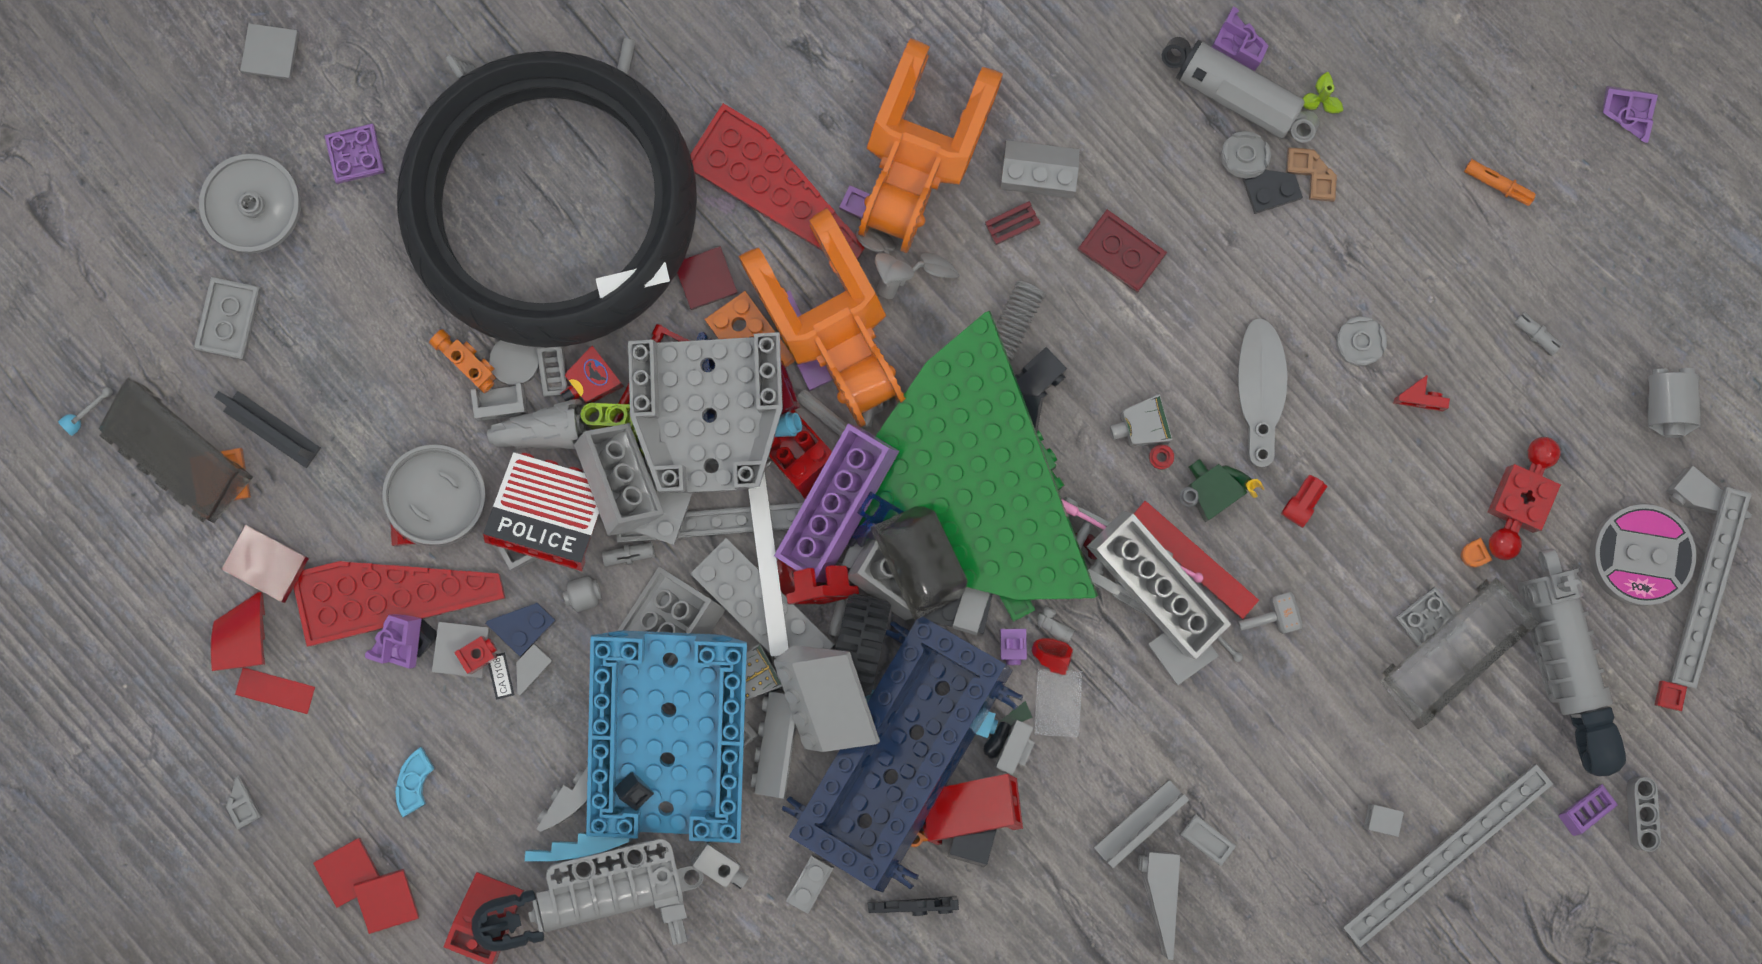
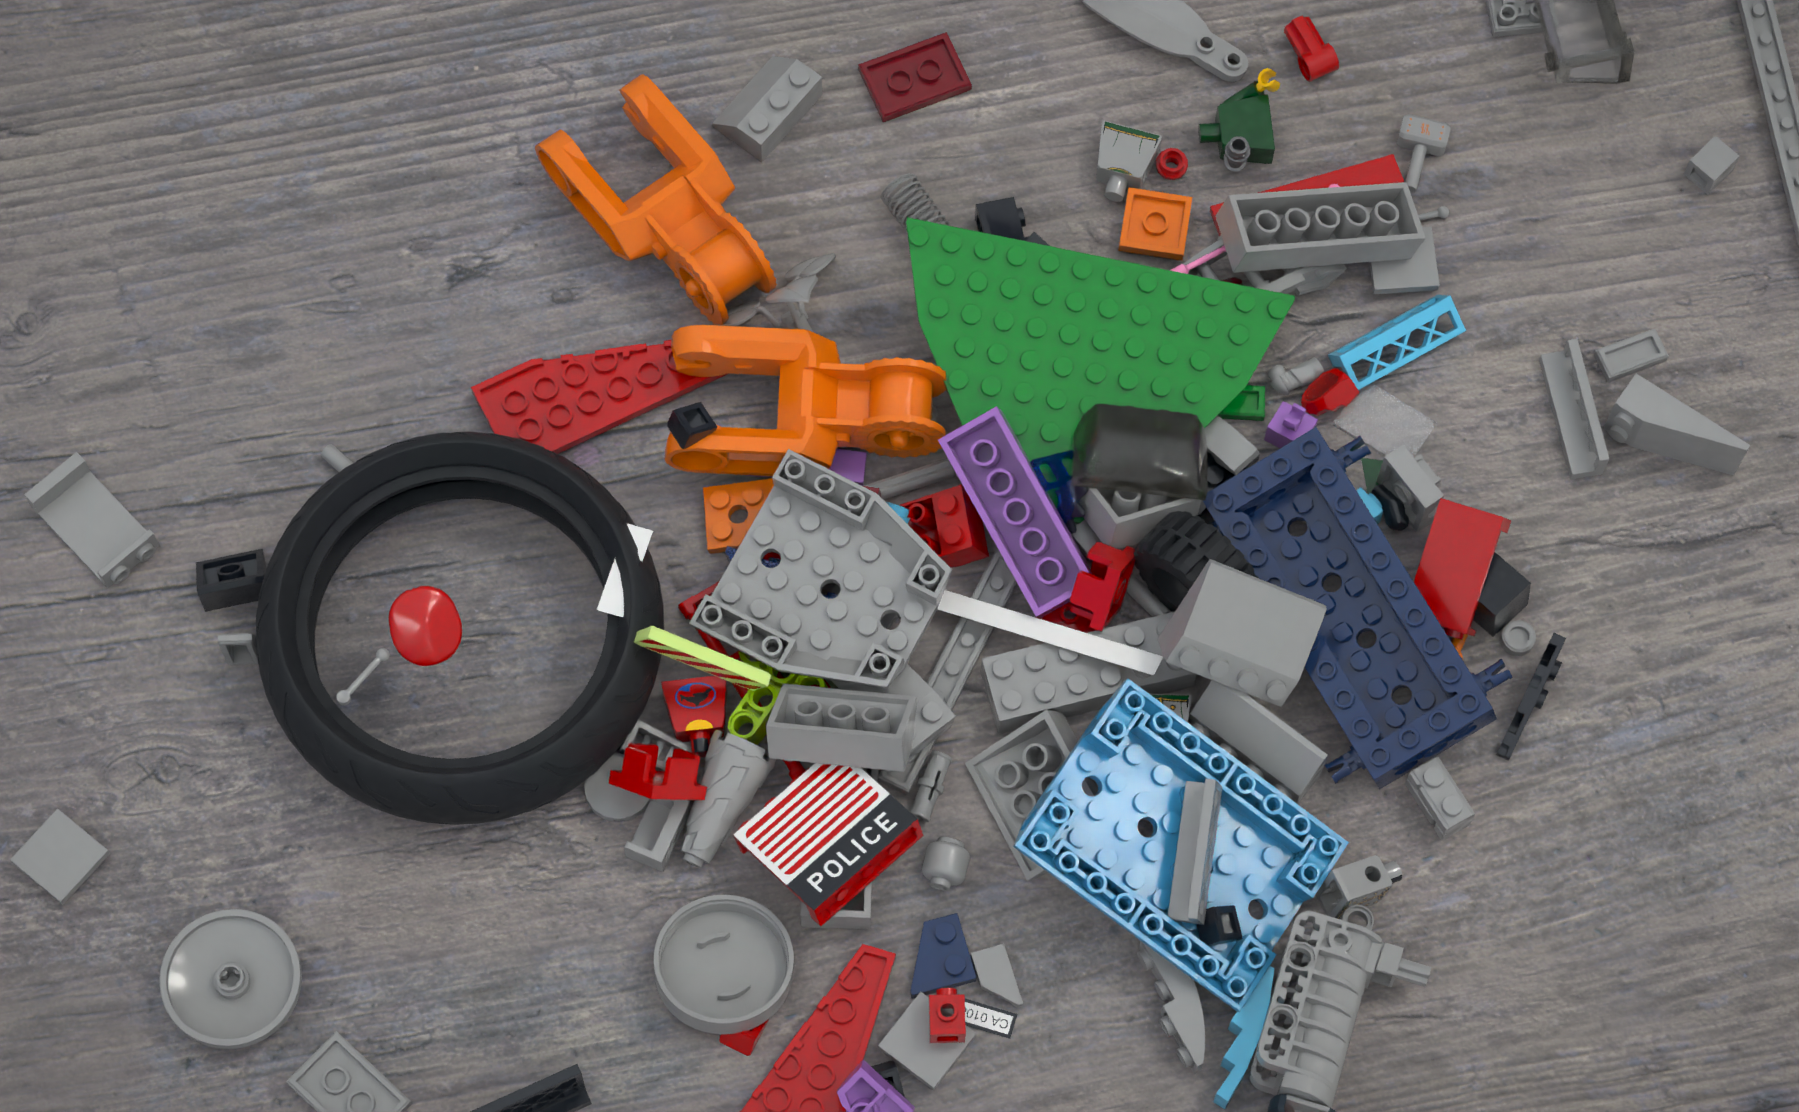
camera: 60 degrees left, 15 degrees down
(354, 153) = (249, 831): medium lavender tile -> none
(441, 159) = (343, 696): none -> light grey hinge
(467, 363) = (585, 833): orange brick -> none
(507, 34) = (230, 579): none -> black slope
(516, 179) = (425, 626): none -> red piece
(519, 384) = (674, 783): none -> red panel
(605, 364) = (702, 658): none -> yellowish green tile
(665, 751) = (1195, 851): none -> light grey fence
(706, 278) = (668, 516): dark red tile -> none
(762, 260) = (690, 424): none -> black slope
(854, 202) = (679, 312): medium lavender plate -> none
(956, 873) = (1518, 638): none -> light grey tile
(1031, 214) = (812, 145): dark red tile -> none
(1109, 471) = (1155, 224): none -> orange plate
(1124, 671) = (1393, 330): none -> medium azure fence

